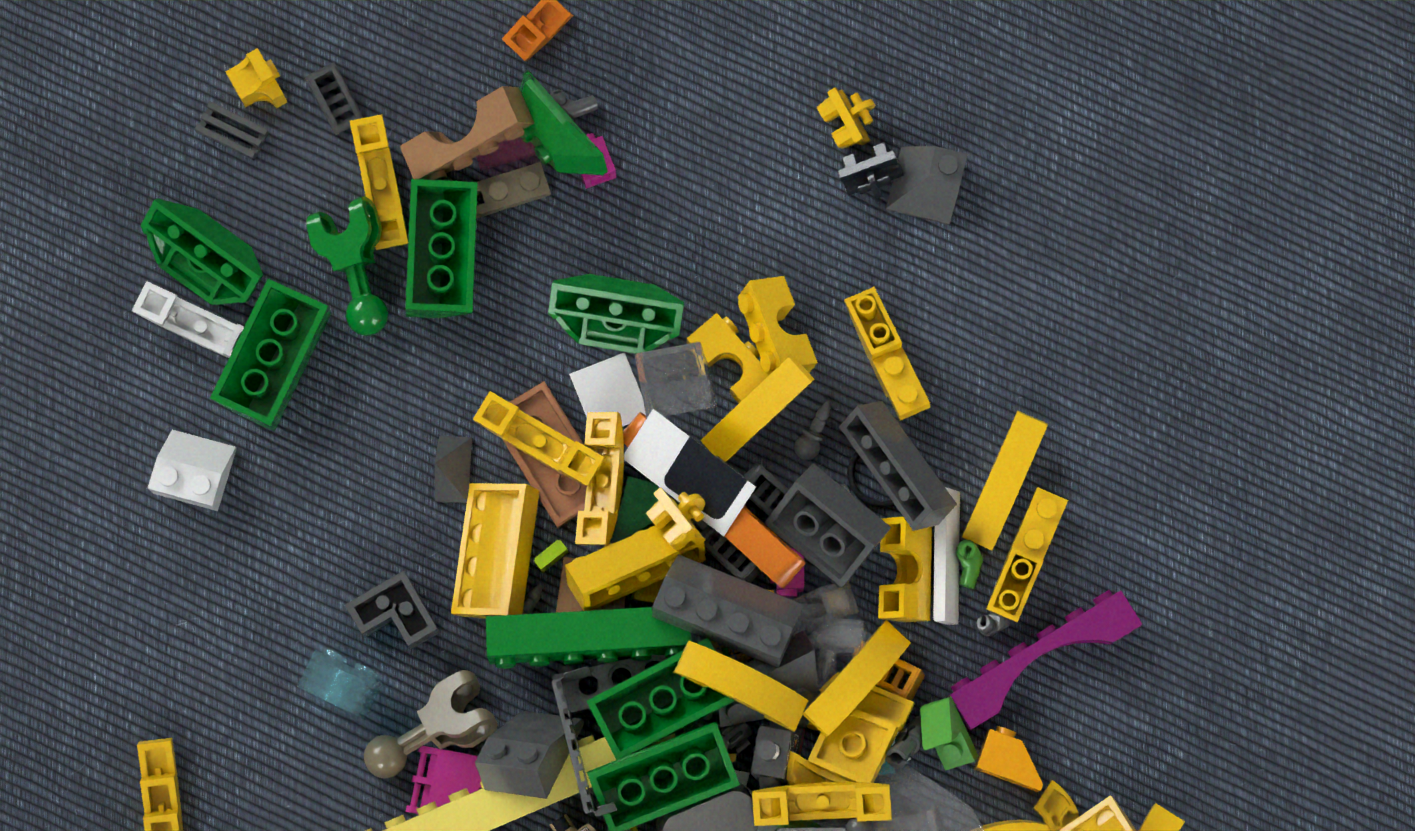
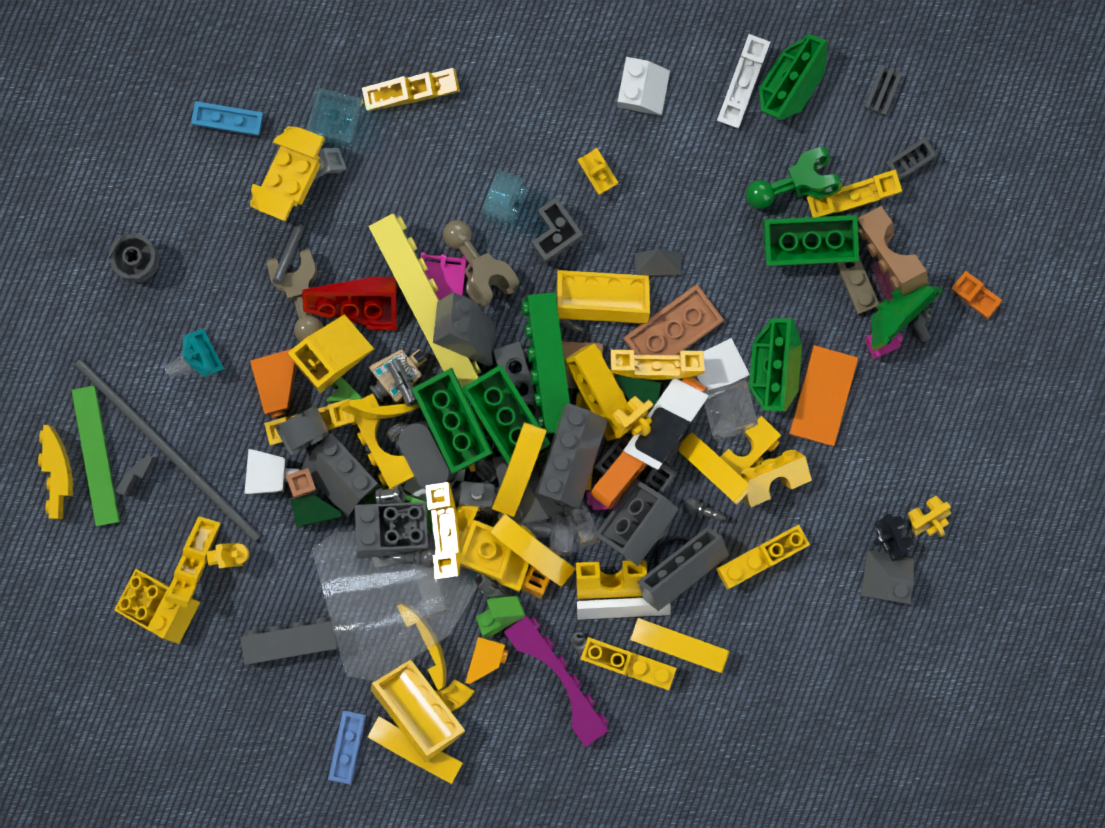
camera: 85 degrees right, 5 degrees up
(256, 80) = (919, 103): yellow brick -> none
(271, 354) = (726, 131): green slope -> none
(311, 544) = (597, 171): none -> yellow hips
(538, 439) = (682, 319): yellow slope -> none
(550, 555) = (602, 334): lime tile -> none
(568, 677) = (477, 357): dark grey piece -> none
(663, 251) = (823, 396): none -> orange tile
(971, 562) = (621, 625): bright green arm -> none

